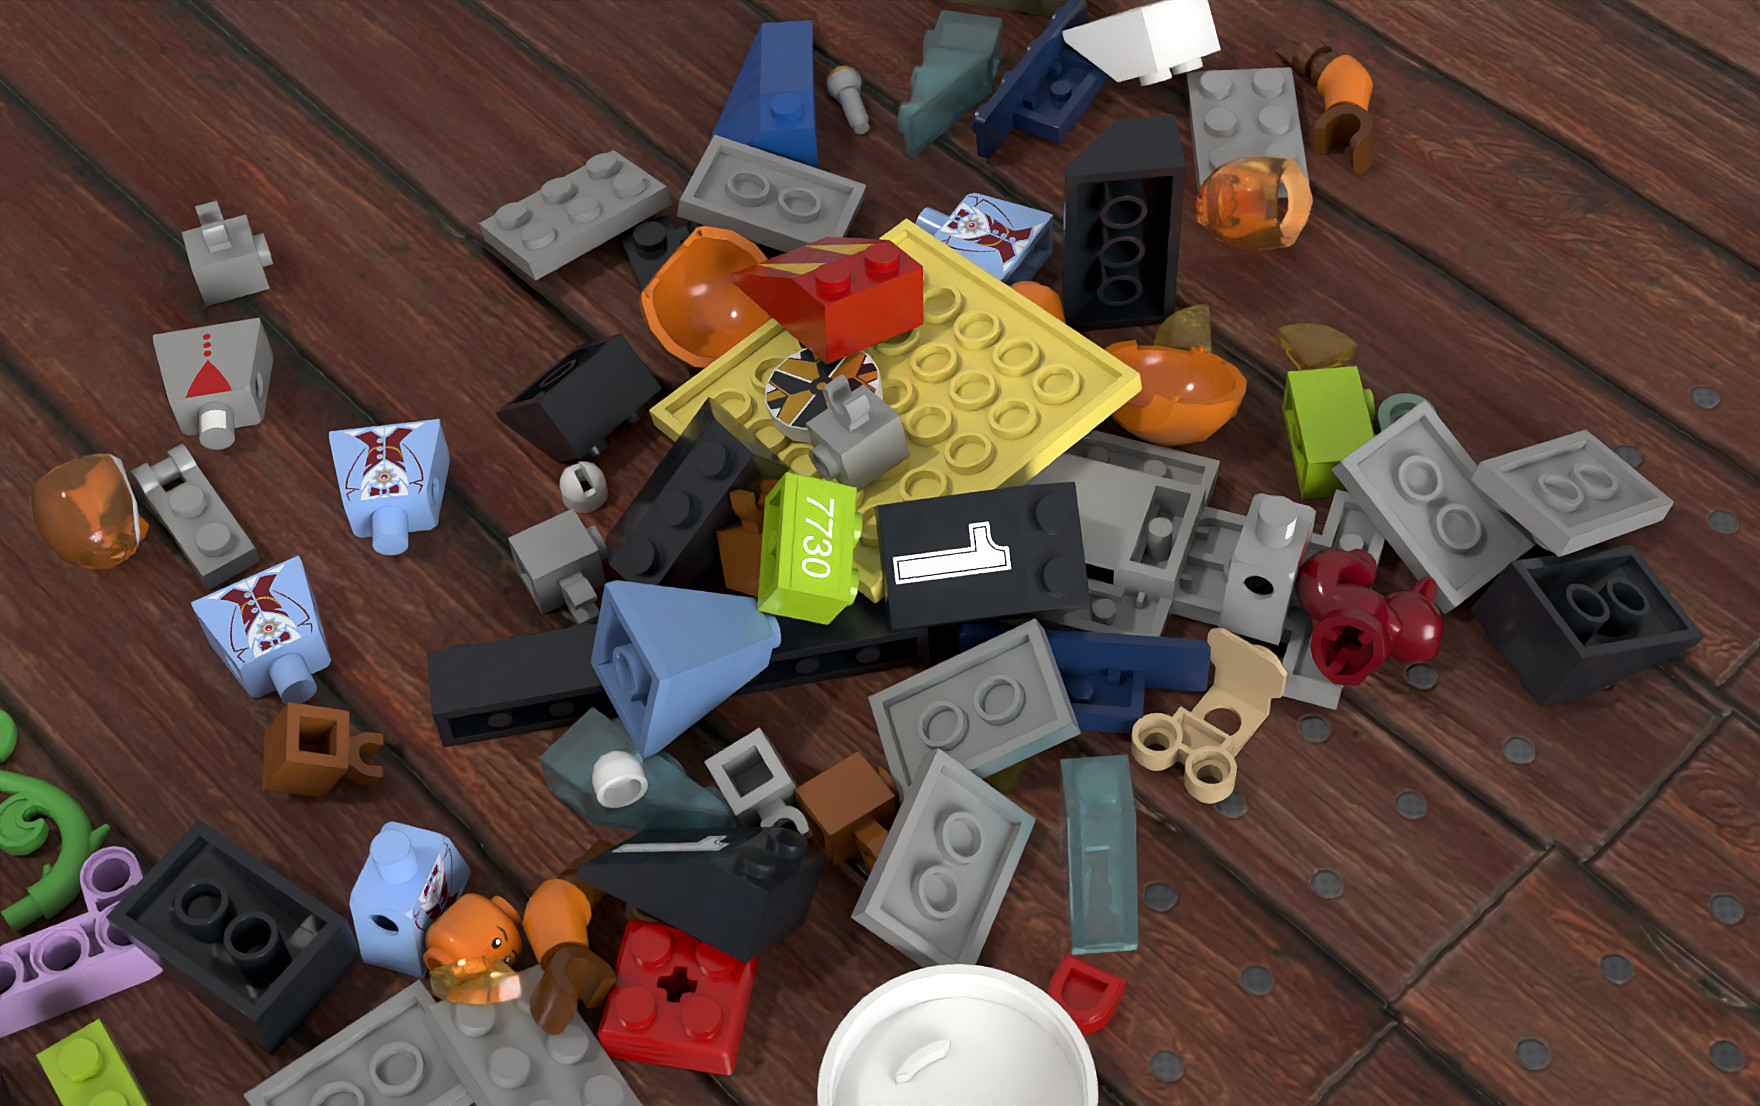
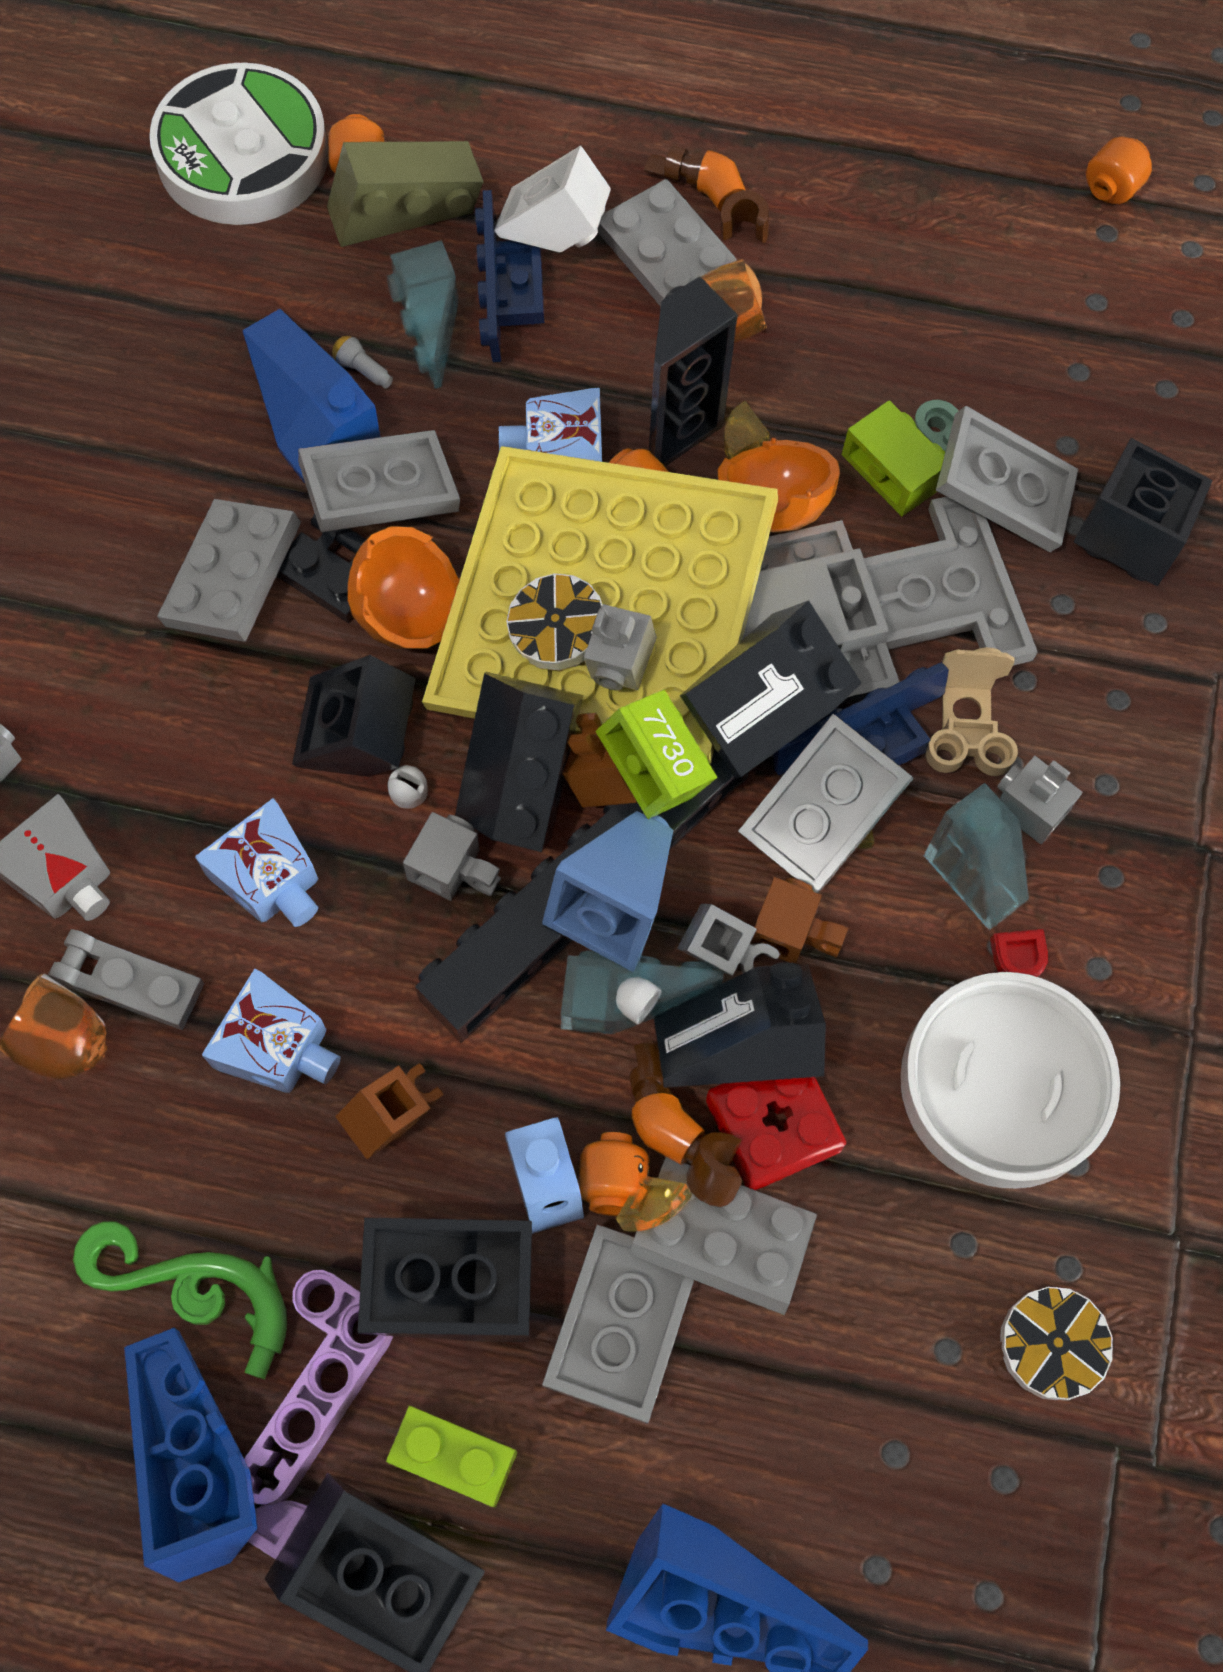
camera: 40 degrees left, 15 degrees up
(839, 293) = (508, 535): red slope -> none
(944, 865) = (886, 924): light grey plate -> none
(1221, 844) = (1038, 796): none -> light grey brick
(1270, 546) = (947, 577): light grey torso -> none
(1315, 346) = (834, 396): clear yellow tile -> none
(1359, 626) = (1026, 596): dark red animal -> none
(1571, 492) = (1084, 423): light grey plate -> none

